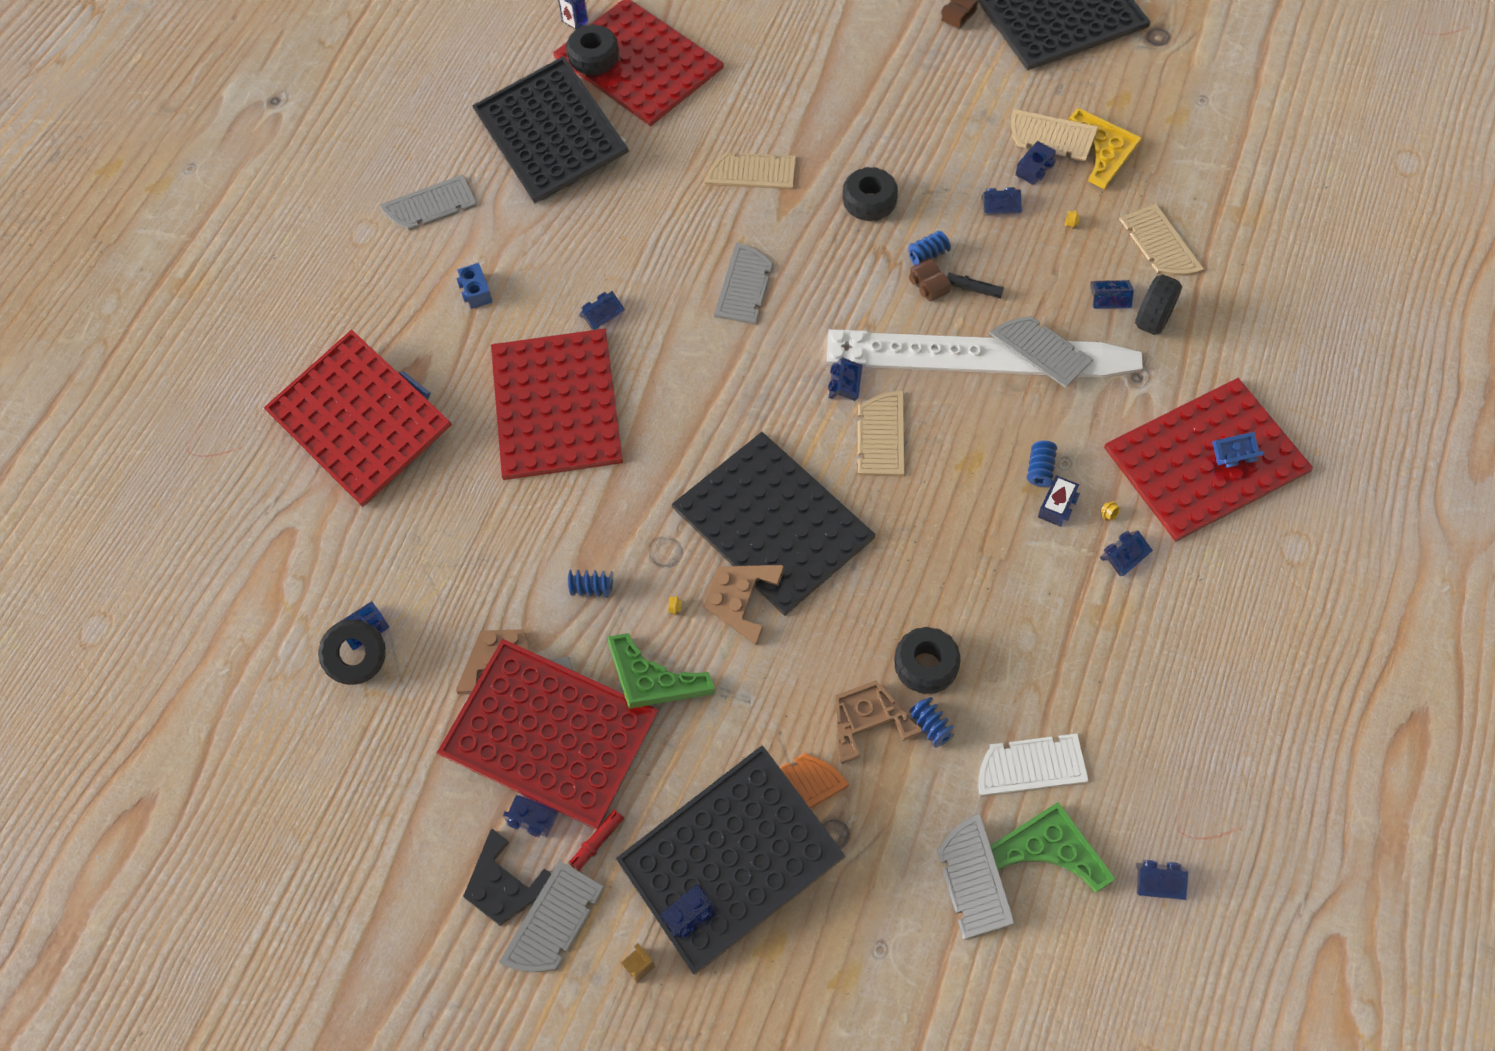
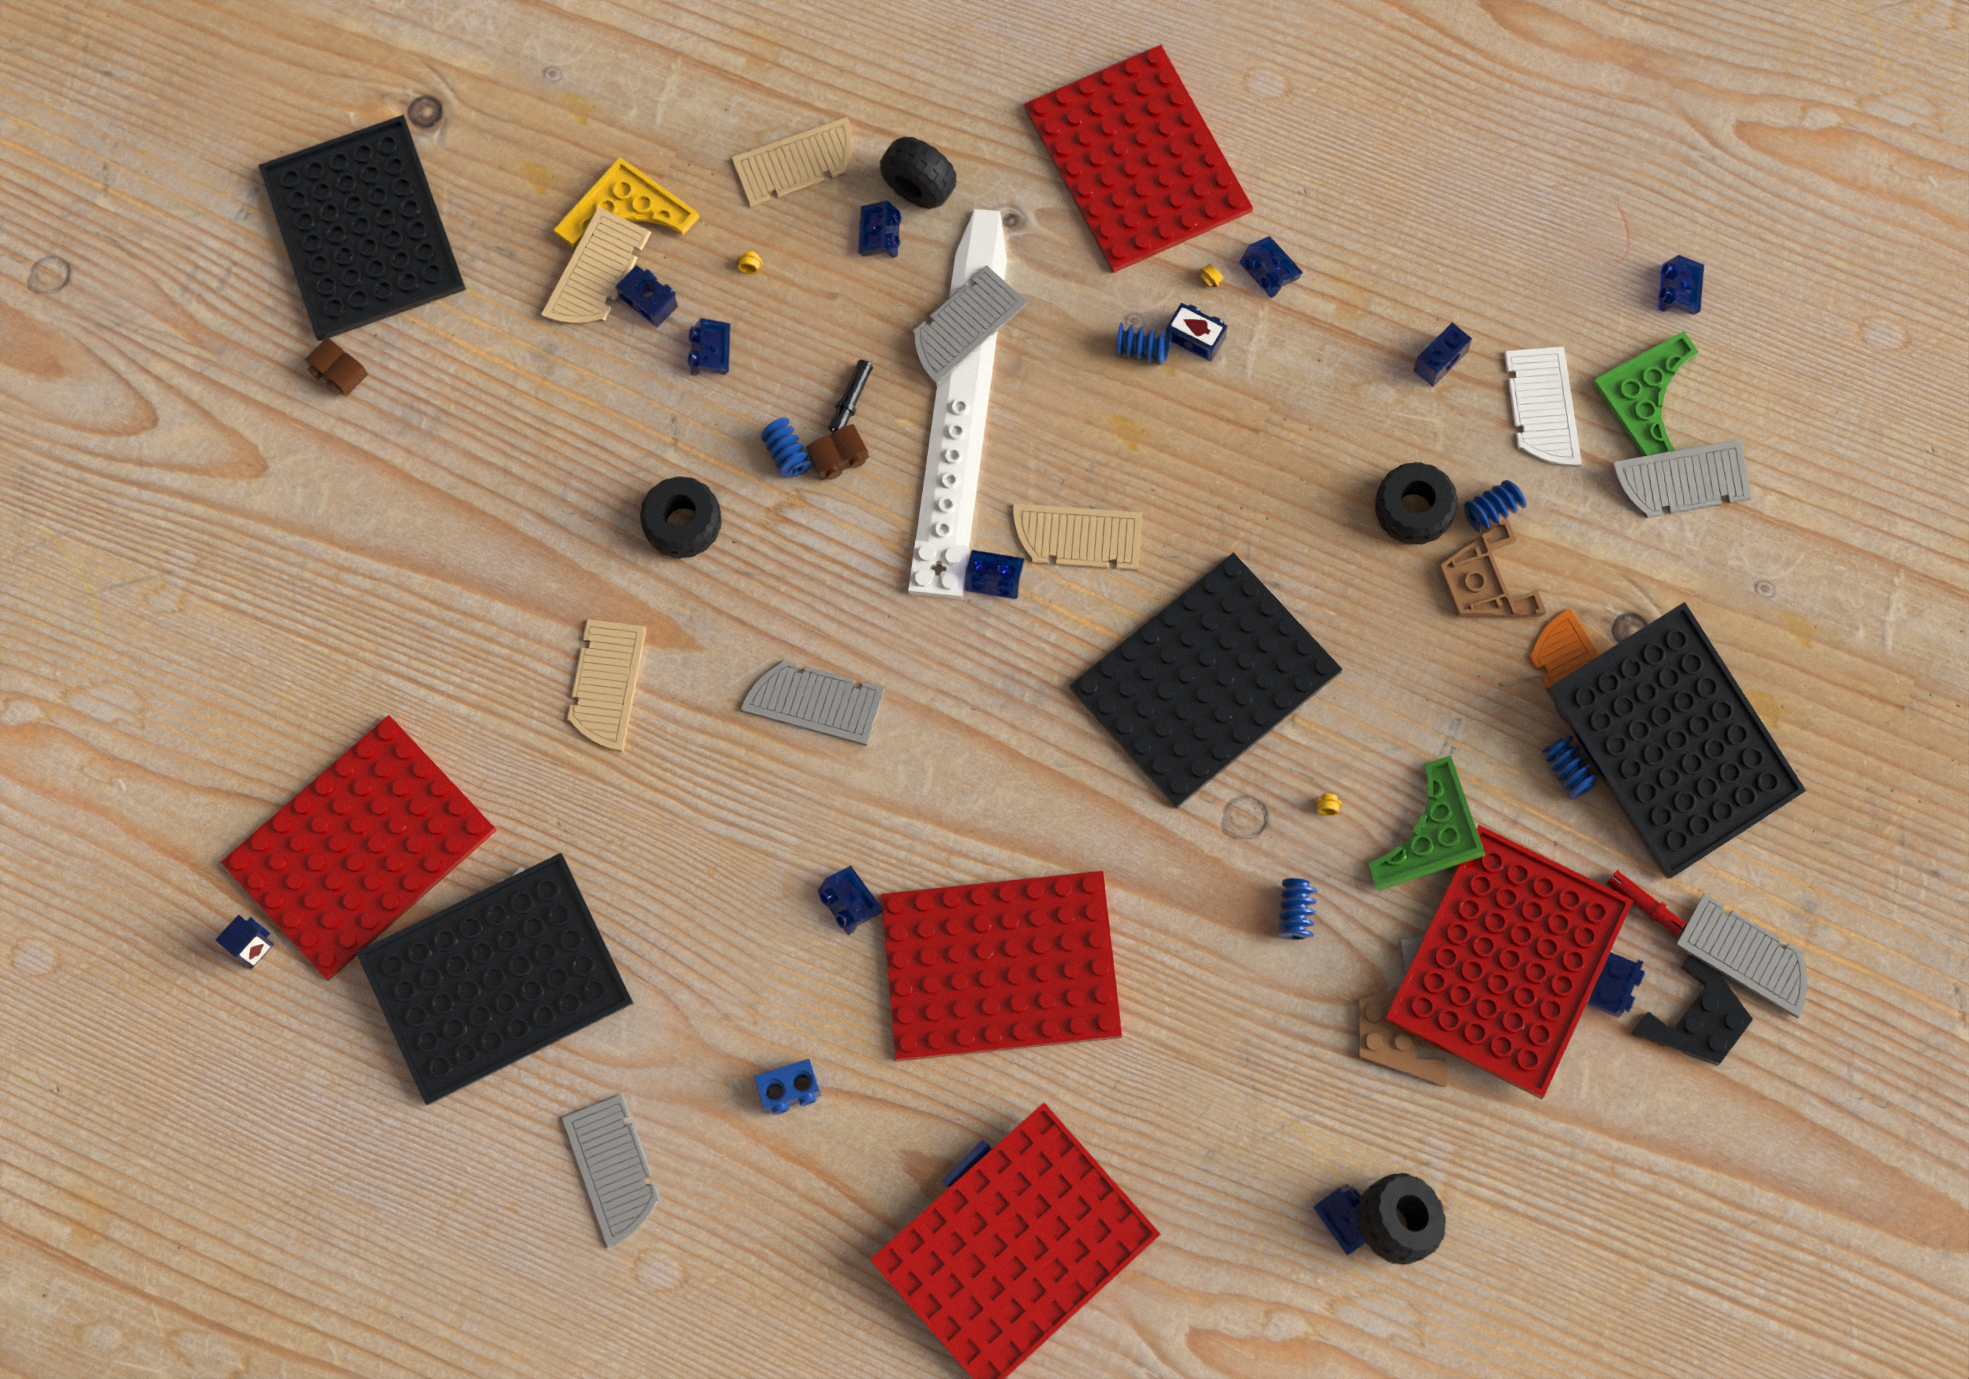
camera: 85 degrees left, 10 degrees up
(592, 49) = (328, 893): black tyre -> none
(638, 963) = (1796, 853): pearl gold panel -> none
(687, 912) = (1742, 789): clear blue bracket -> none
(705, 779) = (1570, 767): none -> blue piece
(732, 592) = (1314, 730): medium nougat wing -> none
(1064, 680) = (1442, 354): none -> clear blue brick
(1236, 448) = (1143, 118): blue bracket -> none

